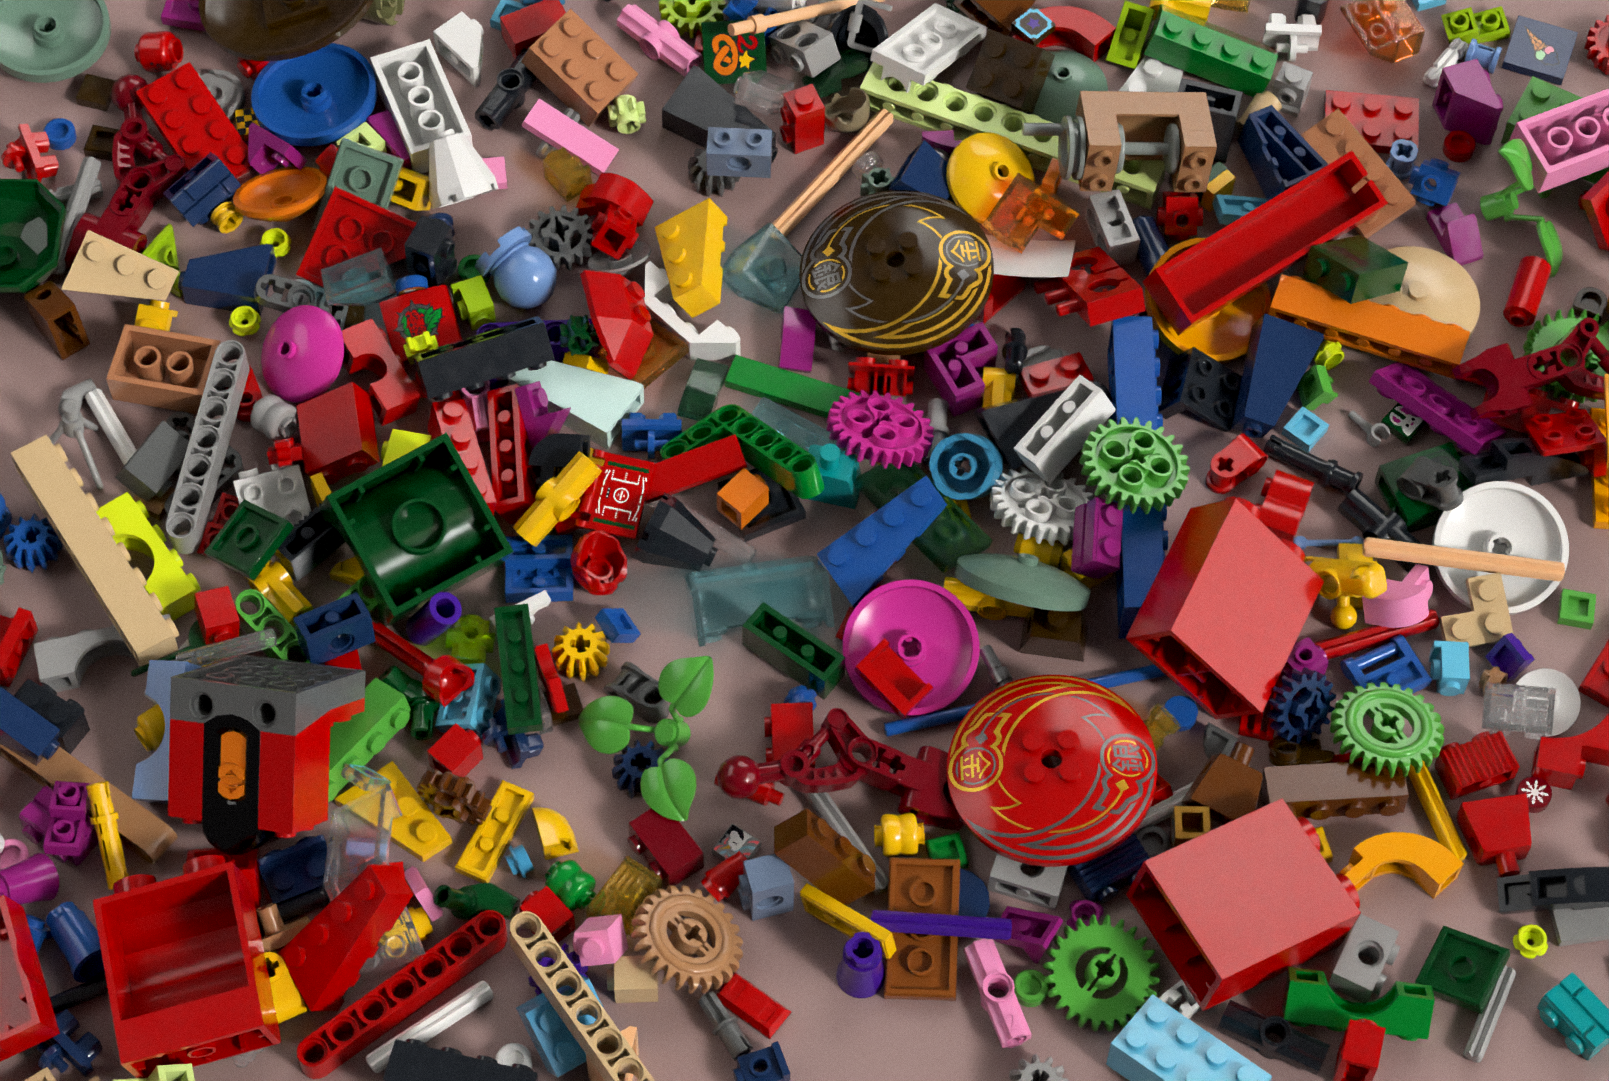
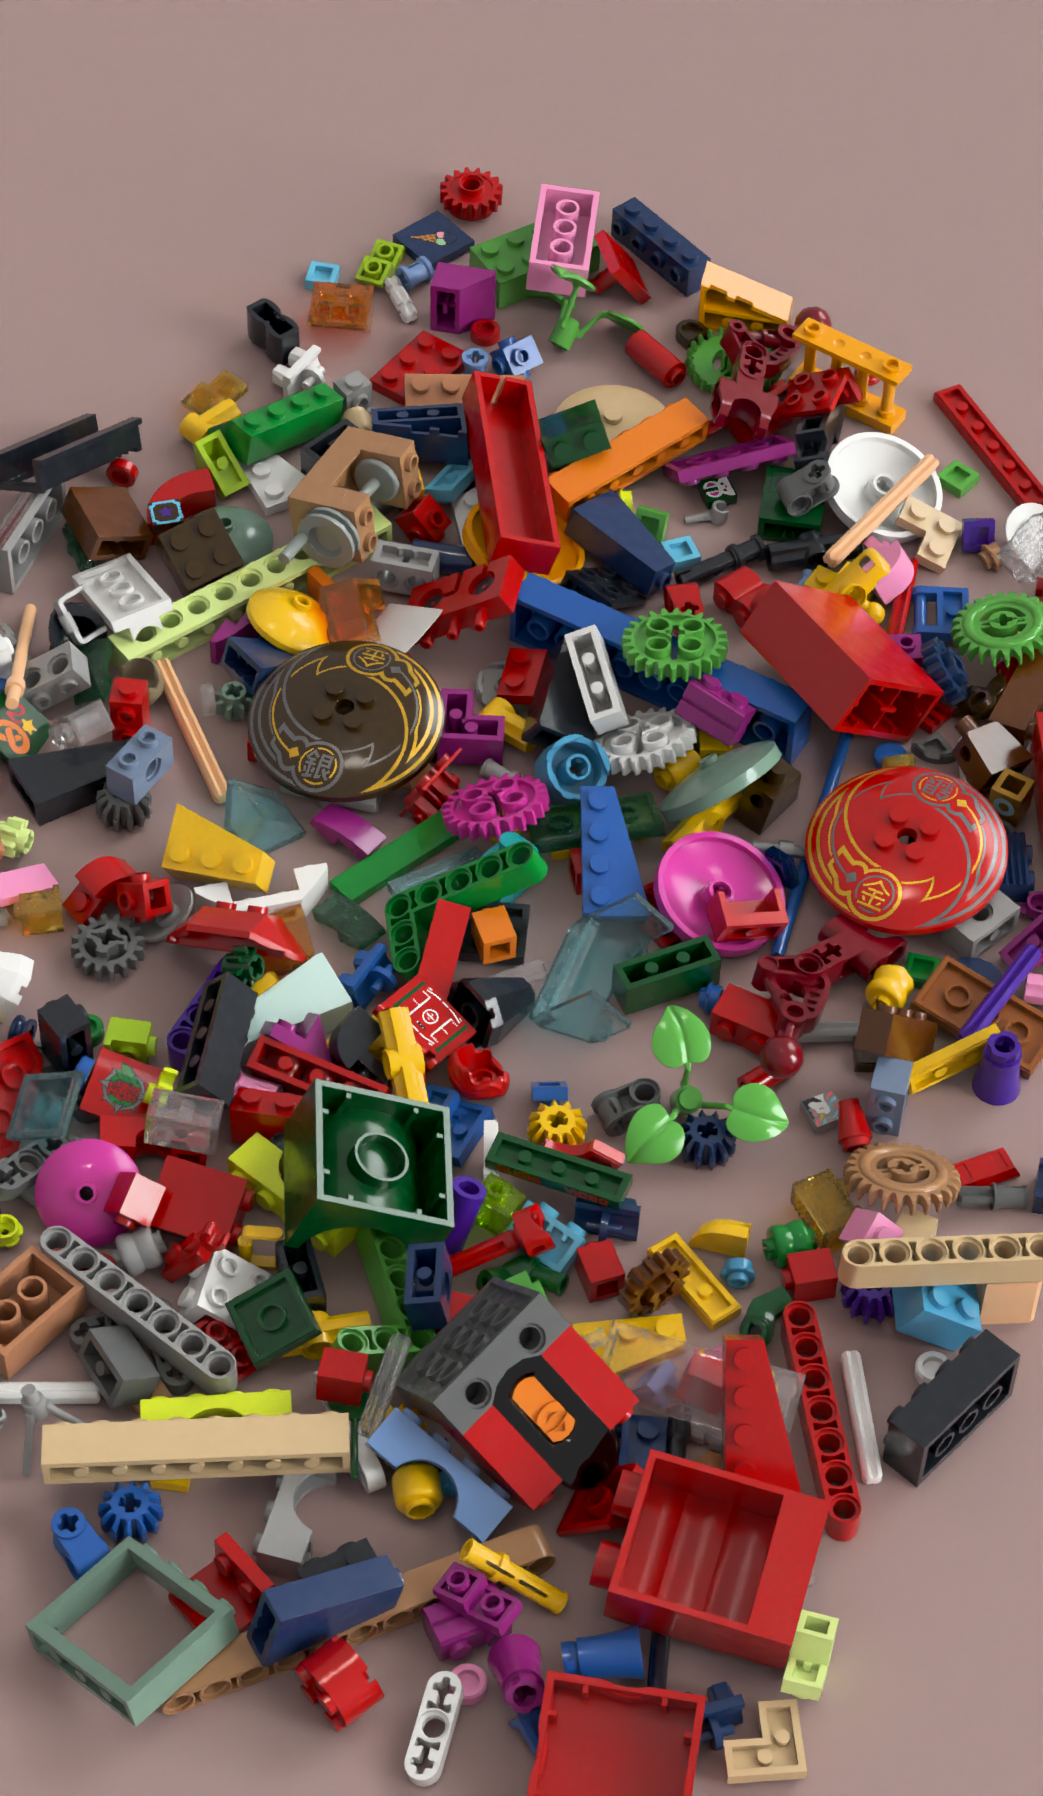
camera: 60 degrees left, 10 degrees down
(299, 384) = (133, 1200): none -> brick
(347, 571) = (344, 1268): yellow tile -> none
(393, 376) = (184, 1121): none -> clear brick
(520, 271) = (133, 985): medium blue tile -> none
(665, 847) = (793, 1156): dark red brick -> none
(976, 683) = (784, 866): none -> clear blue tile
(1014, 350) = (482, 689): black axle -> none
(1450, 666) = (964, 570): medium azure brick -> none
(1456, 233) = (568, 375): magenta slope -> none

